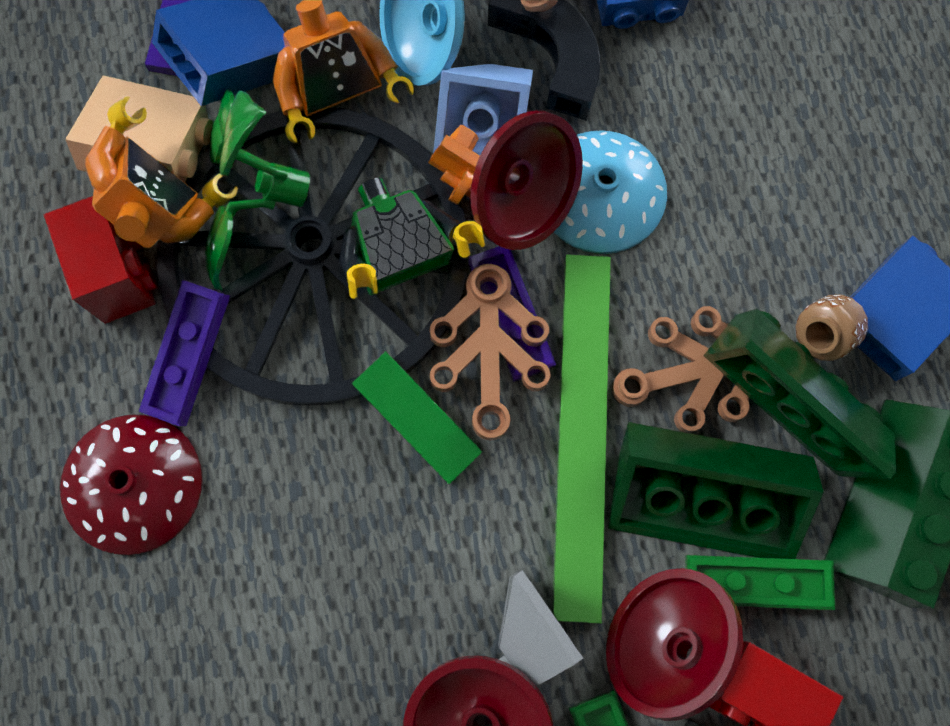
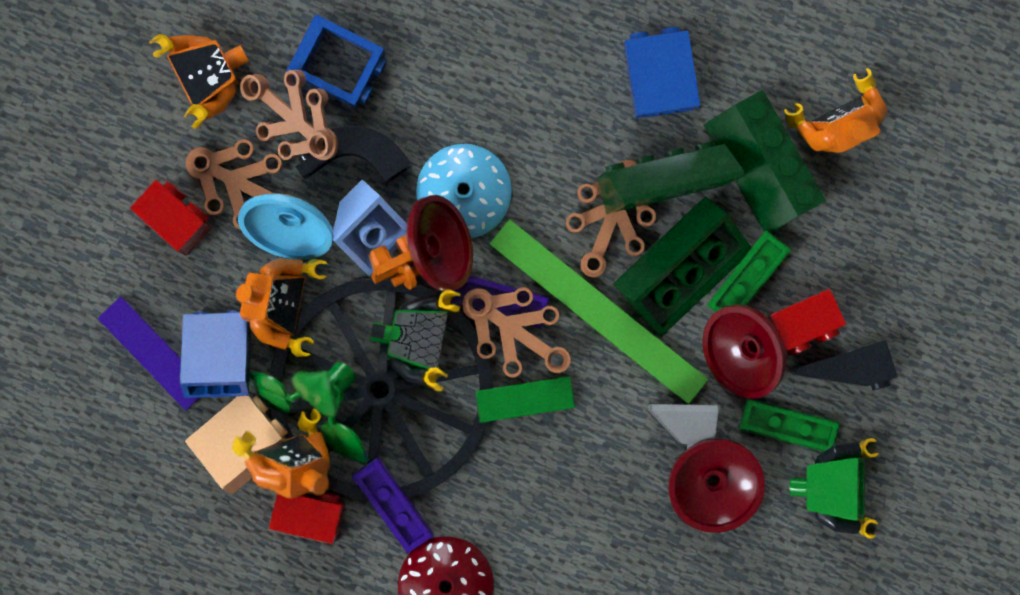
camera: 55 degrees left, 10 degrees up
(832, 327) = (643, 134): medium nougat head -> none

